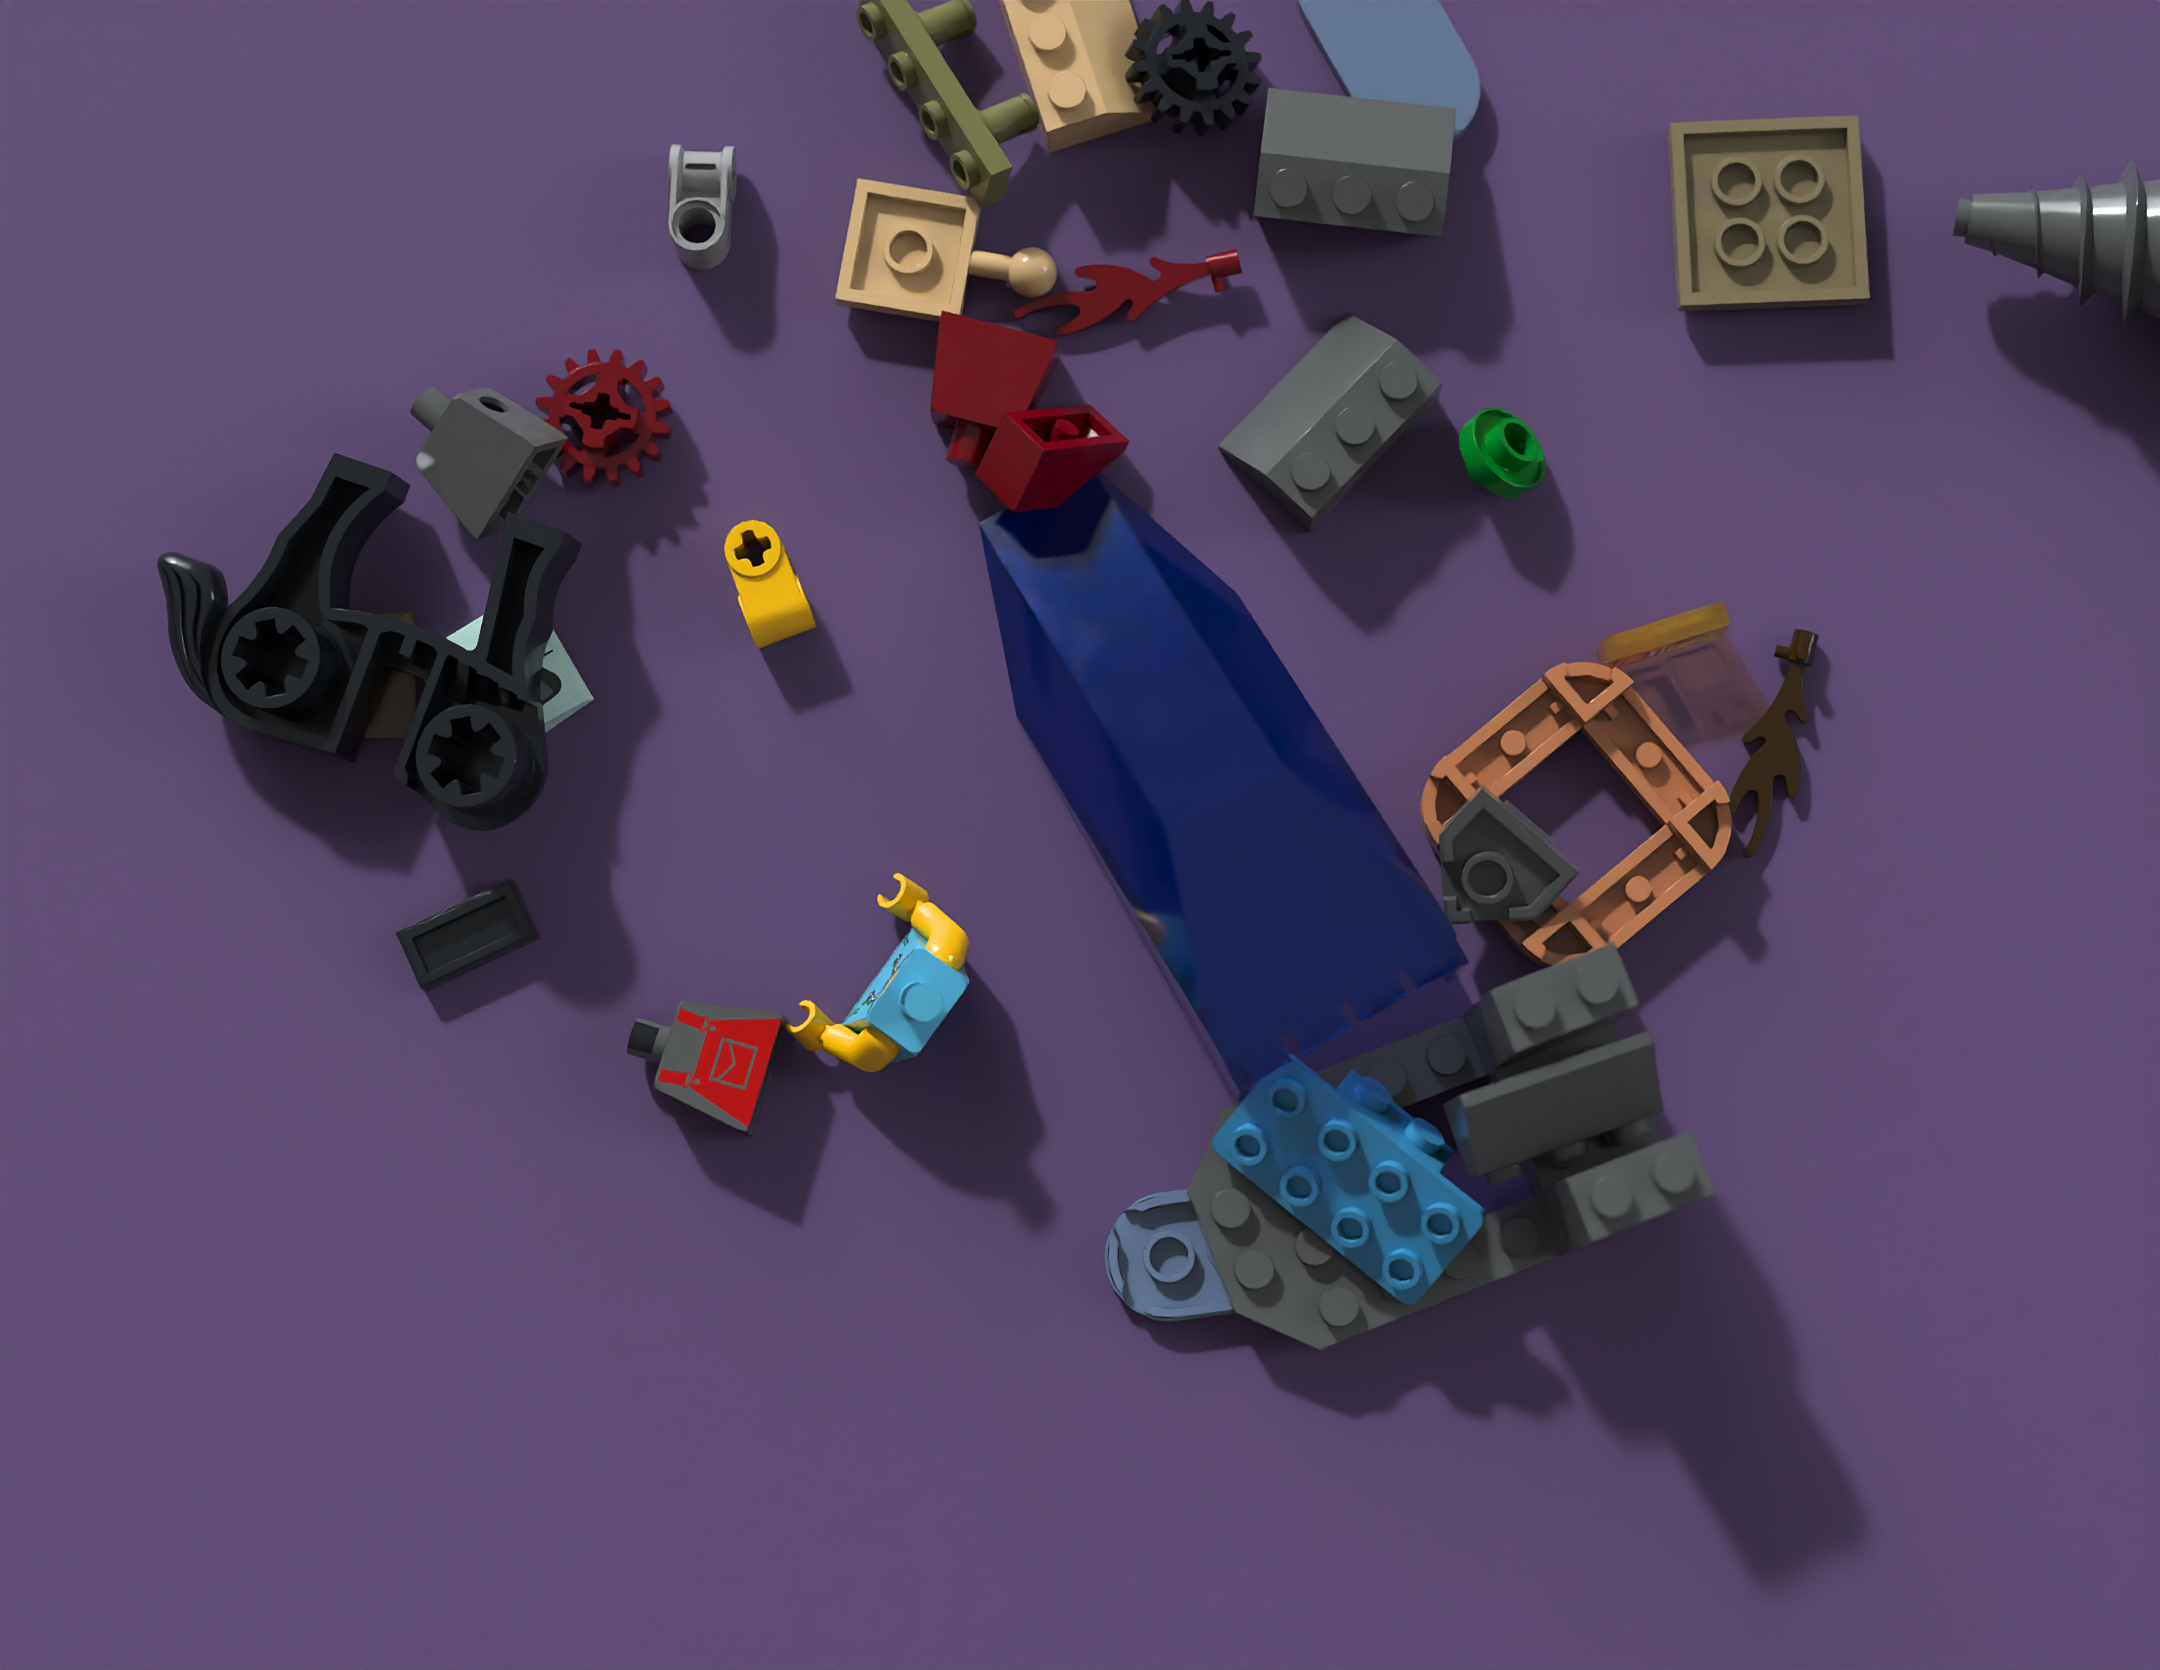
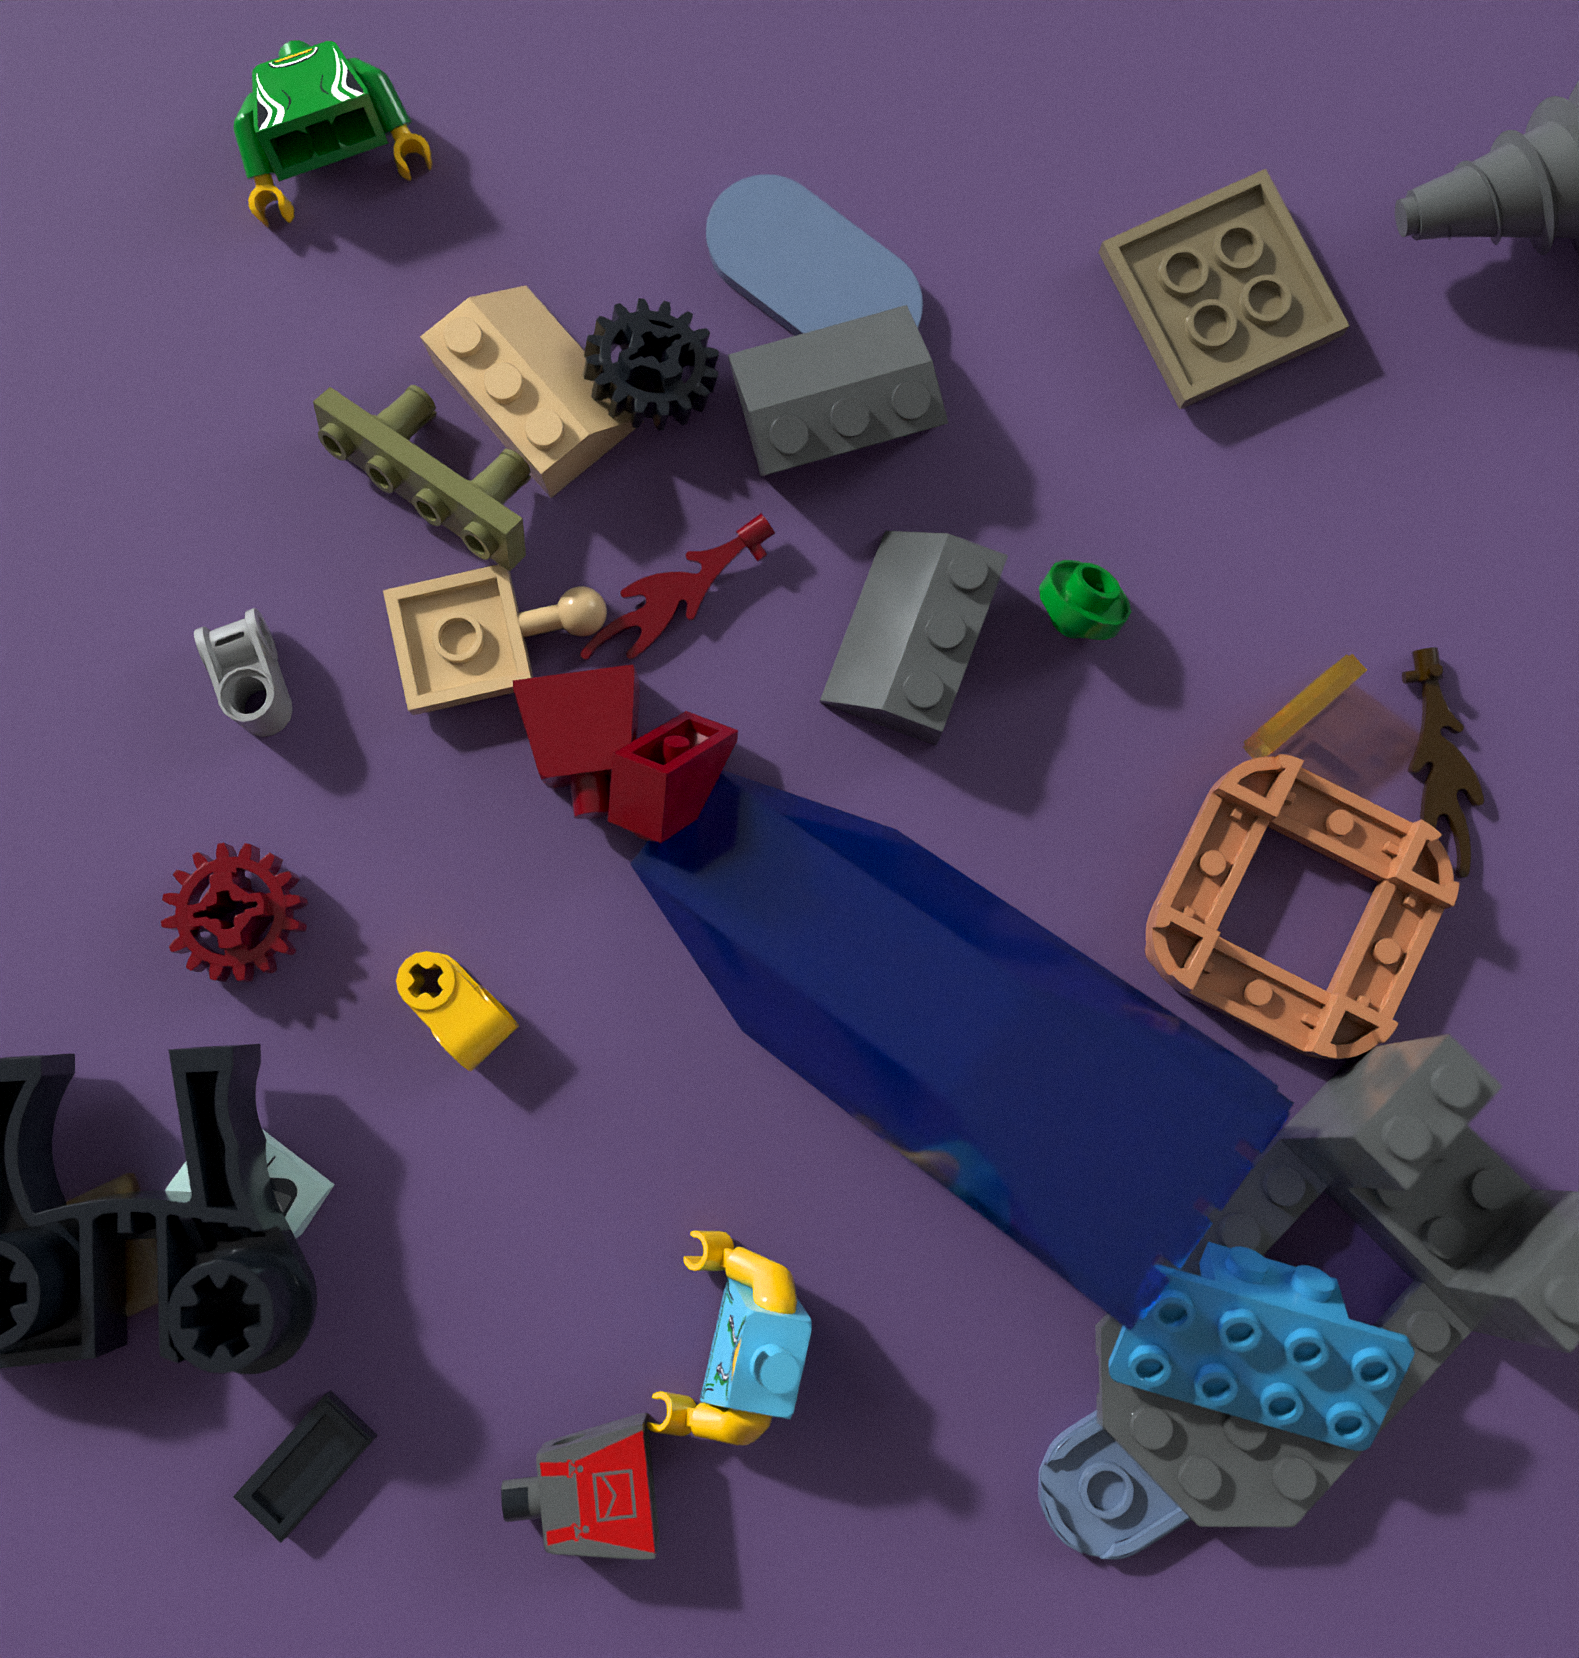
camera: 30 degrees left, 0 degrees up
(483, 454) = (130, 997): dark grey torso -> none
(1498, 863) = (1259, 984): dark grey plate -> none
(1557, 1109) = (1411, 1237): dark grey slope -> none

